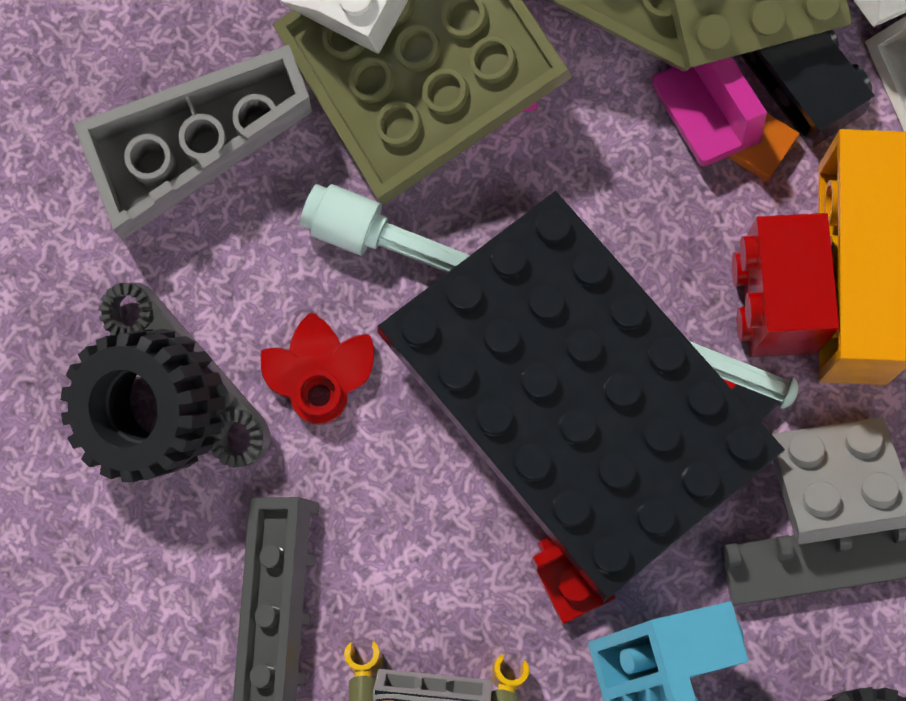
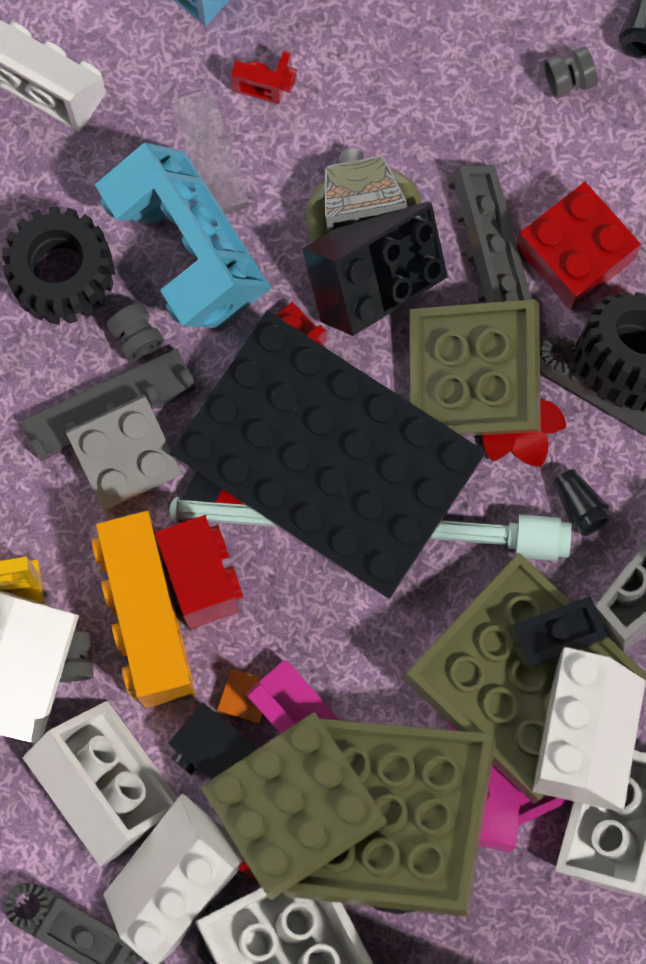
camera: 165 degrees right, 0 degrees up
(159, 578) = (578, 245): none -> red brick
(278, 247) = (581, 503): none -> black cone
(351, 447) = (477, 366): none -> olive plate
(366, 78) = (546, 635): none -> black plate
(443, 623) = (374, 266): none -> black slope
(784, 635) = (135, 332): none -> dark grey wheel

